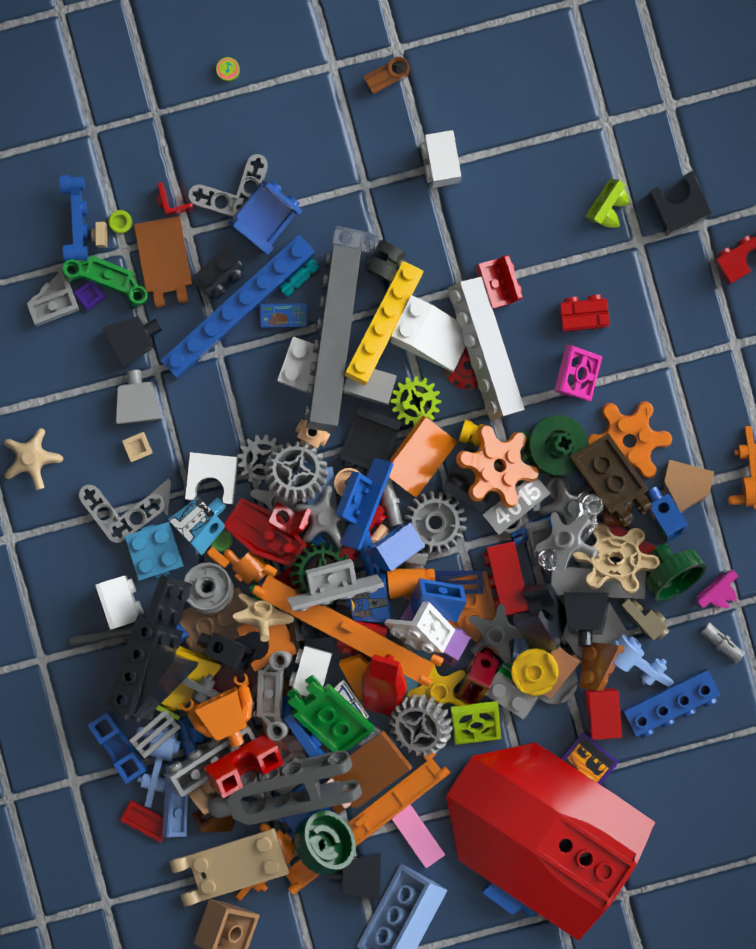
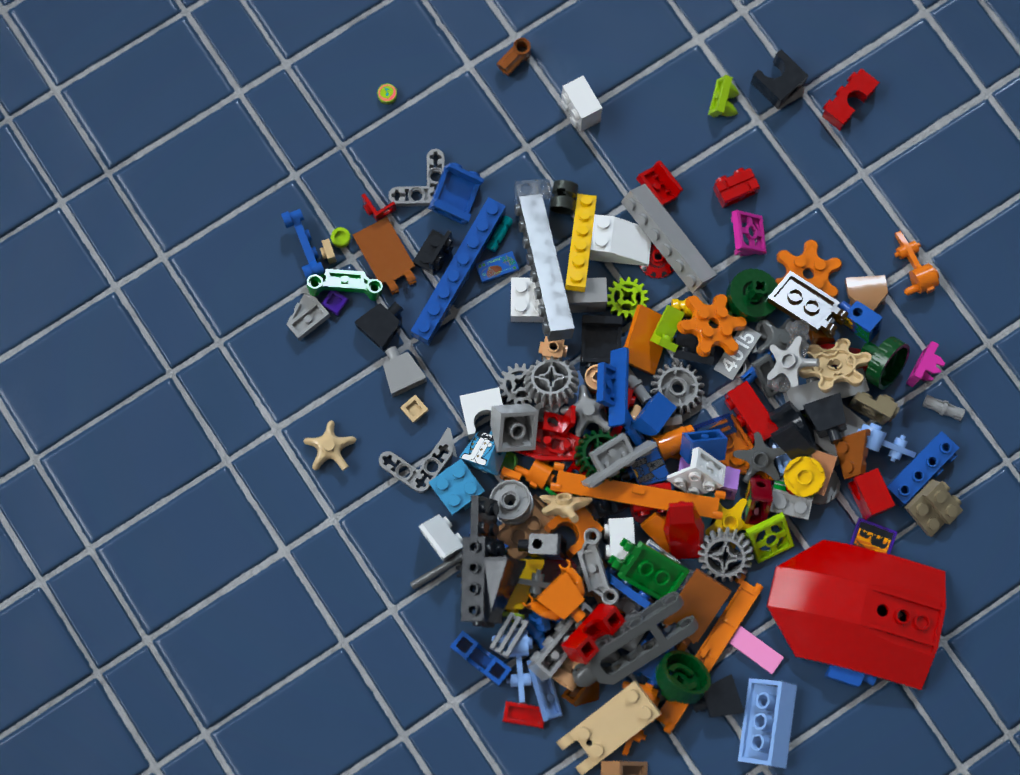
camera: 20 degrees left, 10 degrees down
(237, 509) = (514, 427): none -> light grey slope
(445, 454) = (667, 328): none -> lime bracket
(668, 750) = (934, 507): none -> dark tan plate

